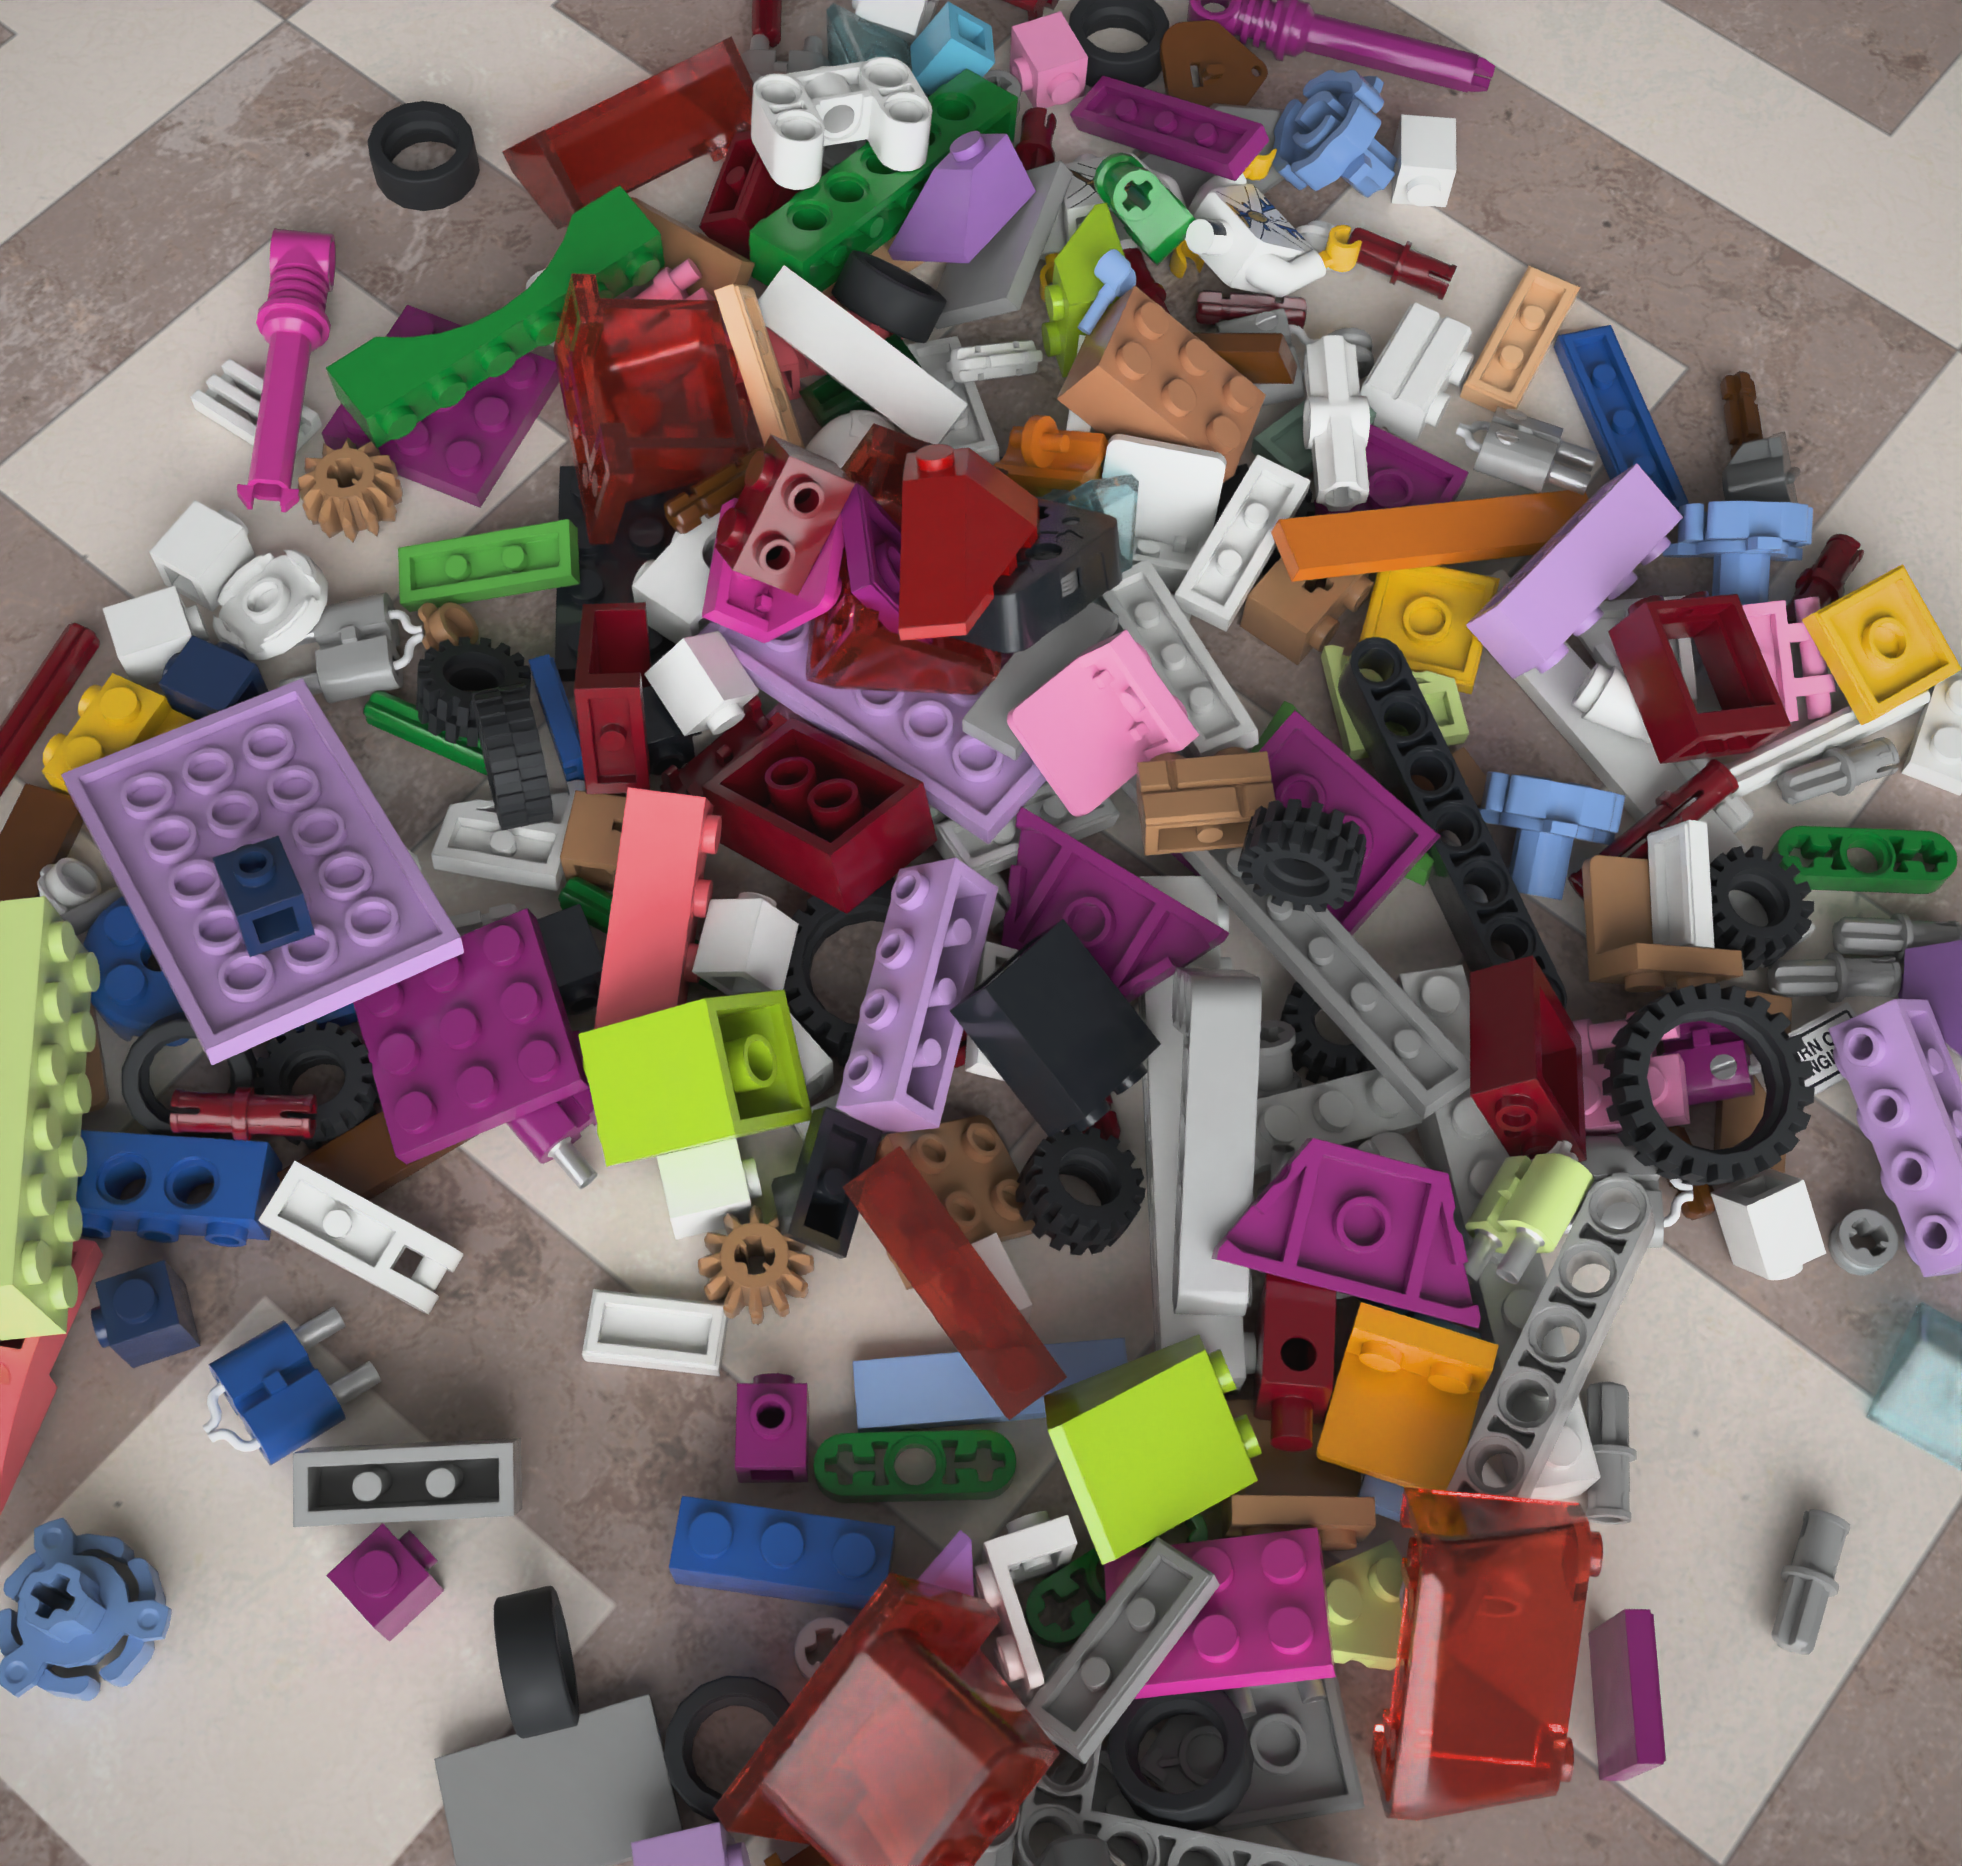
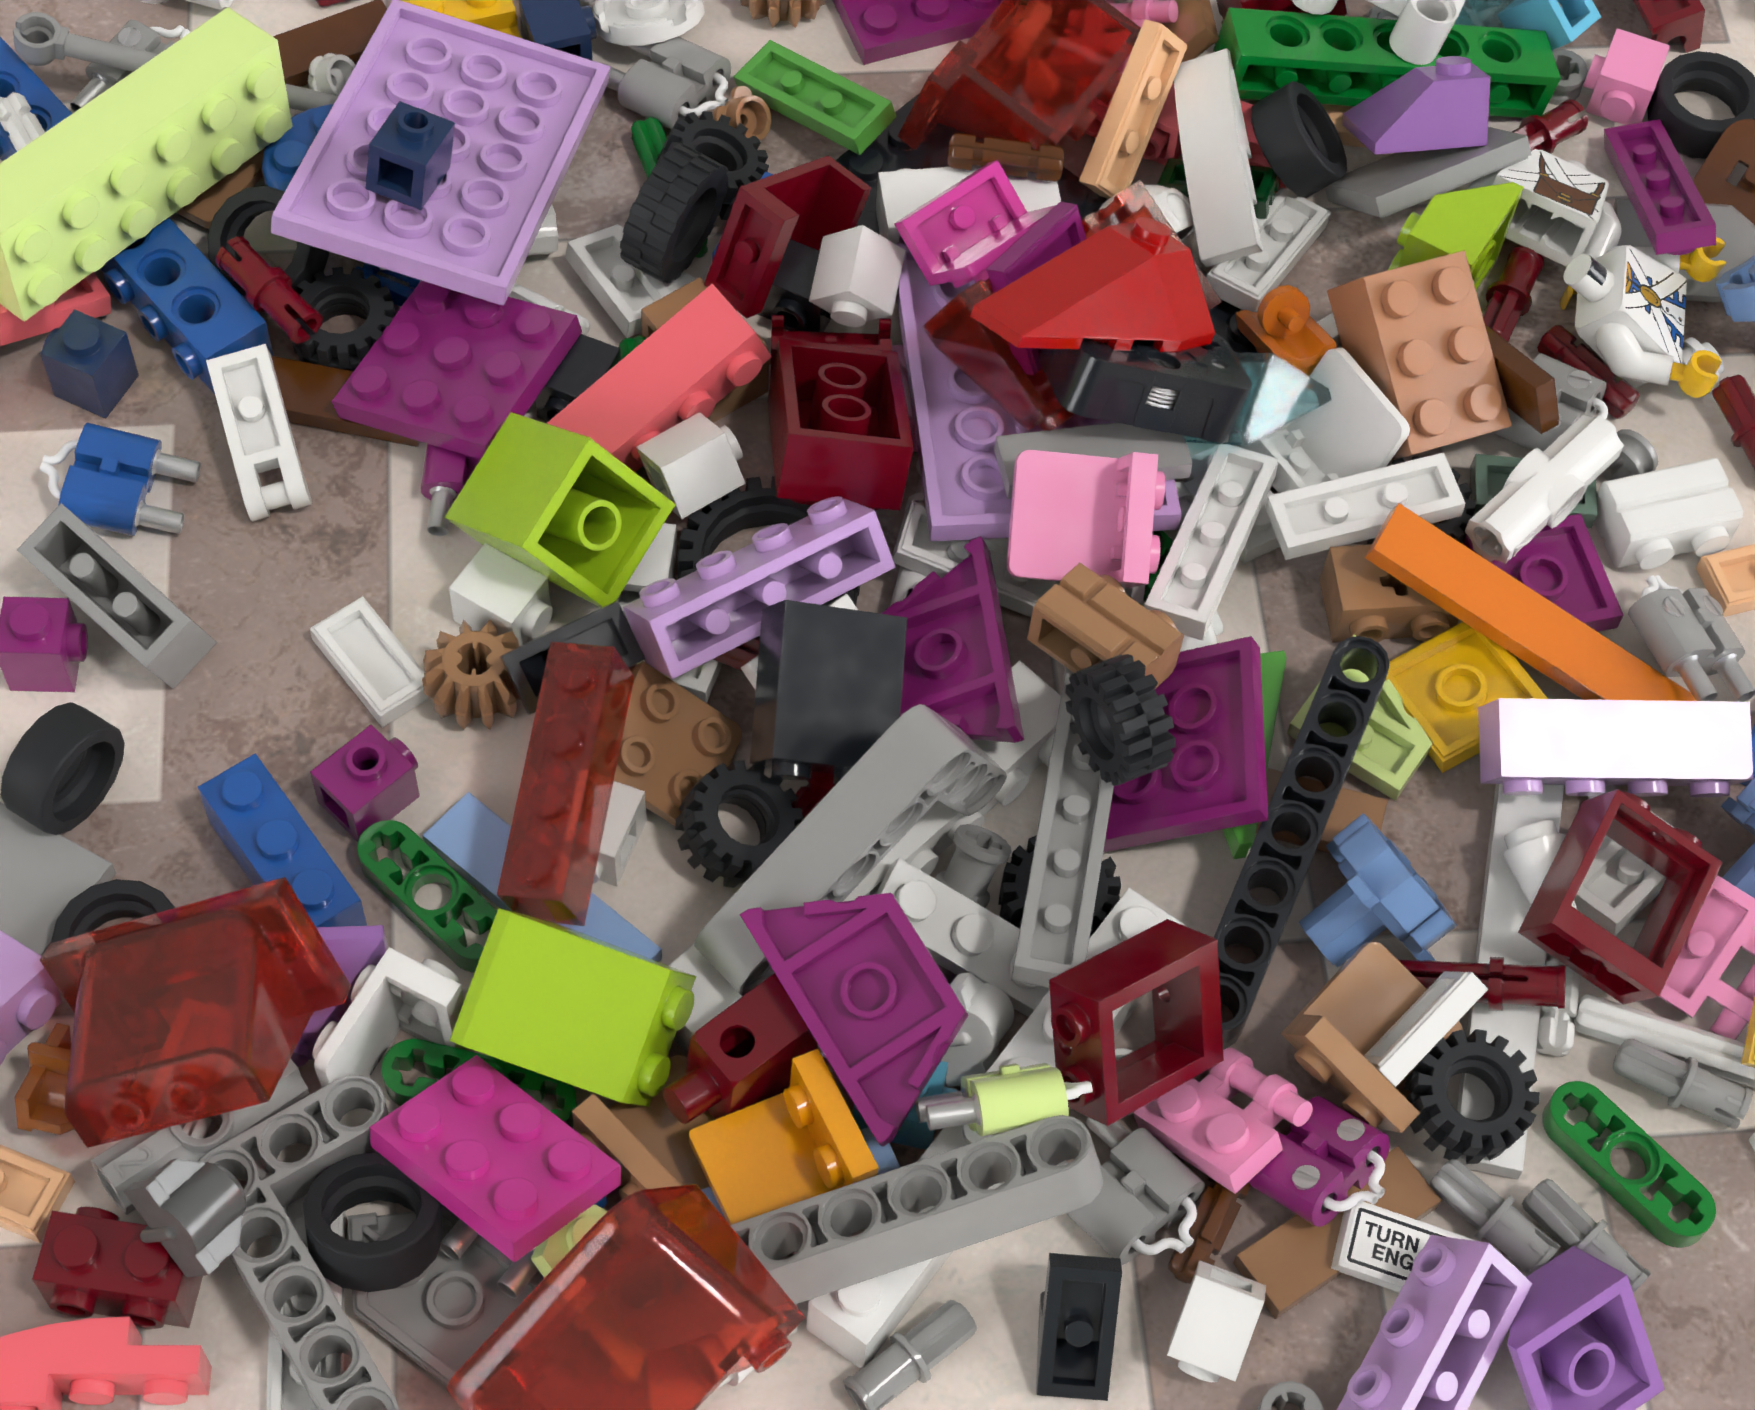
camera: 45 degrees right, 5 degrees down
(782, 515) = (1004, 188): dark red brick -> none
(993, 361) = (1331, 244): white axle -> none
(1117, 278) = (1463, 235): light blue hand -> none
(1121, 1649) = (399, 1103): light grey tile -> none
(1147, 210) = (1555, 225): piece -> none
(1688, 1319) = (1077, 1326): none -> black slope
(1770, 1045) = (1313, 1095): black tyre -> none

